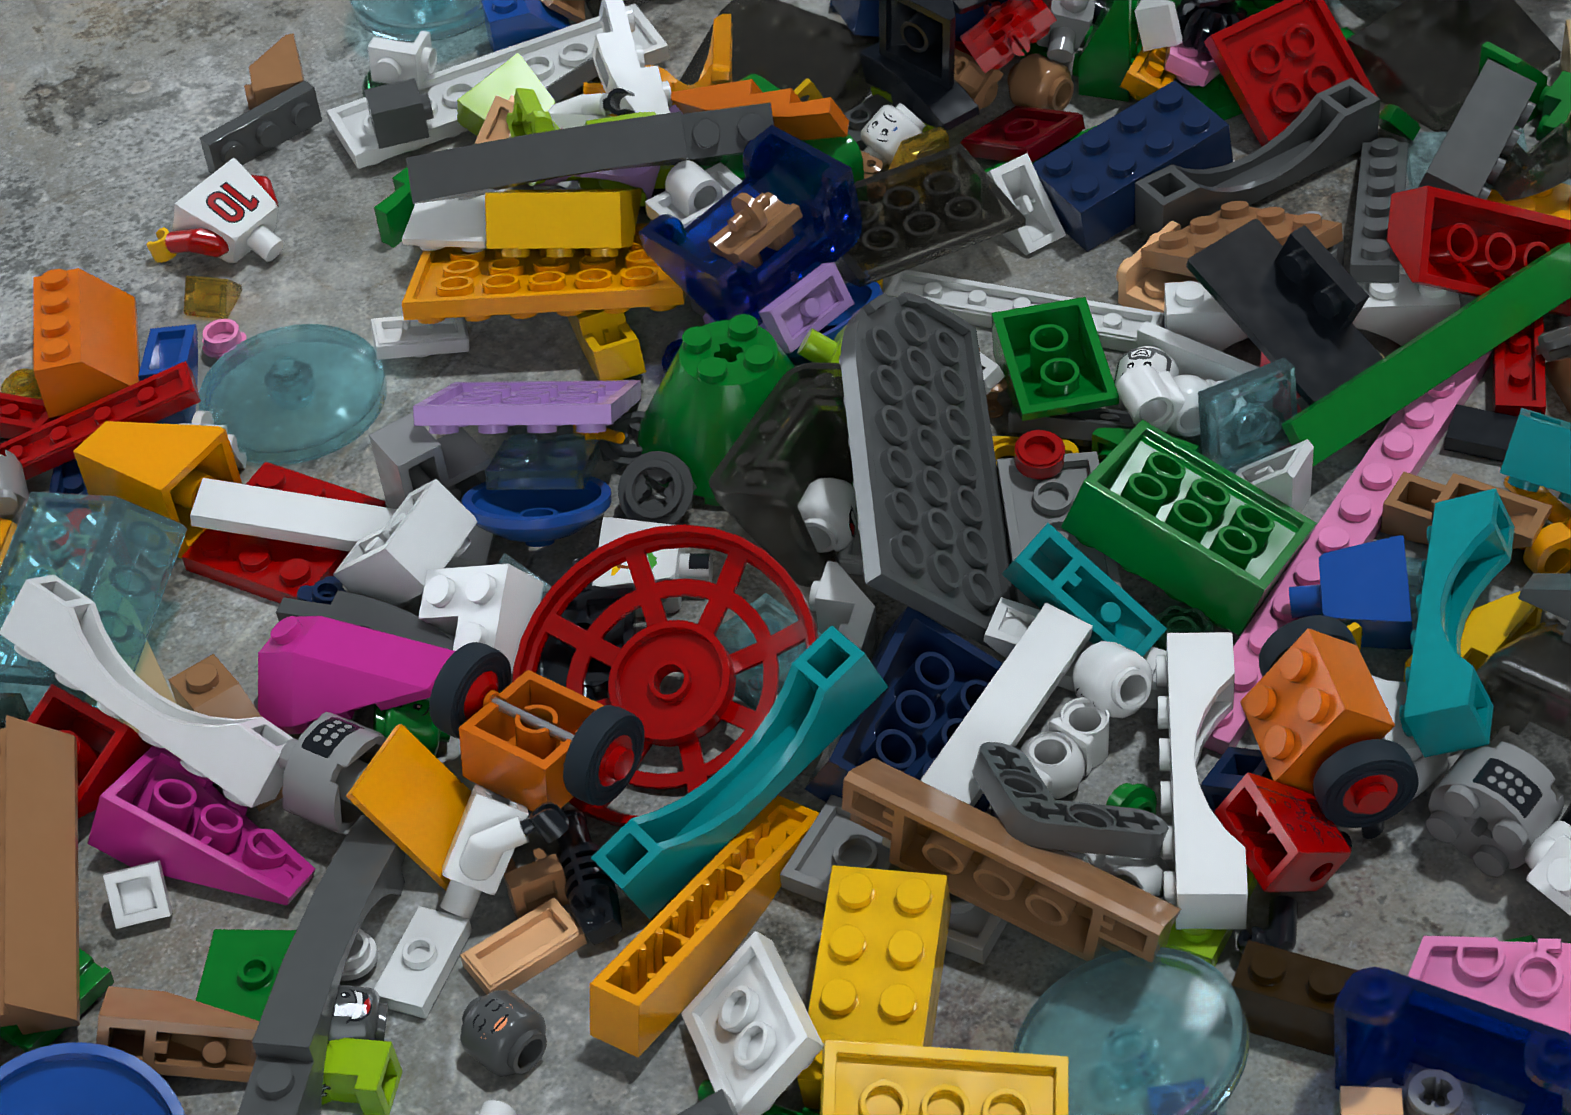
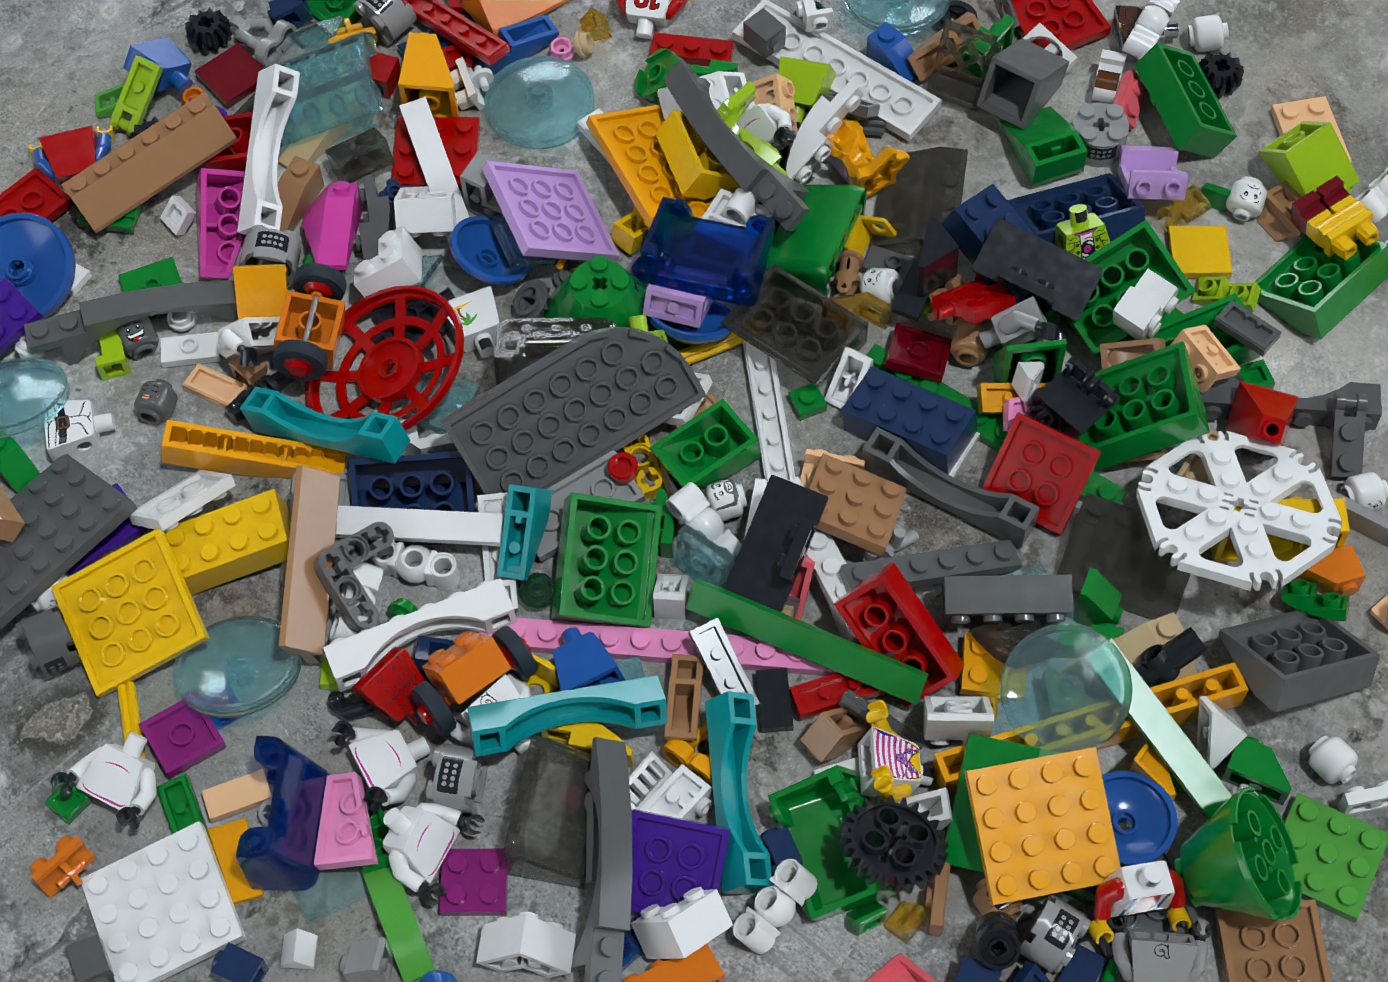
camera: 60 degrees right, 15 degrees up
(178, 1034) = (98, 264): medium nougat slope -> none
(226, 611) = (359, 156): none -> clear smoke brick
(236, 307) = (582, 43): none -> tan plate
(339, 214) = (694, 49): none -> red plate
(344, 241) = (652, 78): none -> green plate
(754, 226) = (705, 251): medium nougat hips -> none
(800, 119) = (822, 204): orange slope -> none
(1022, 266) = (807, 401): none -> green plate
(1113, 678) = (472, 567): white head -> none
(1289, 996) = (304, 724): dark brown brick -> none
(1398, 122) = (1035, 550): green tile -> none
(1412, 898) = (383, 761): none -> white torso
(1430, 452) = (720, 659): none -> plate

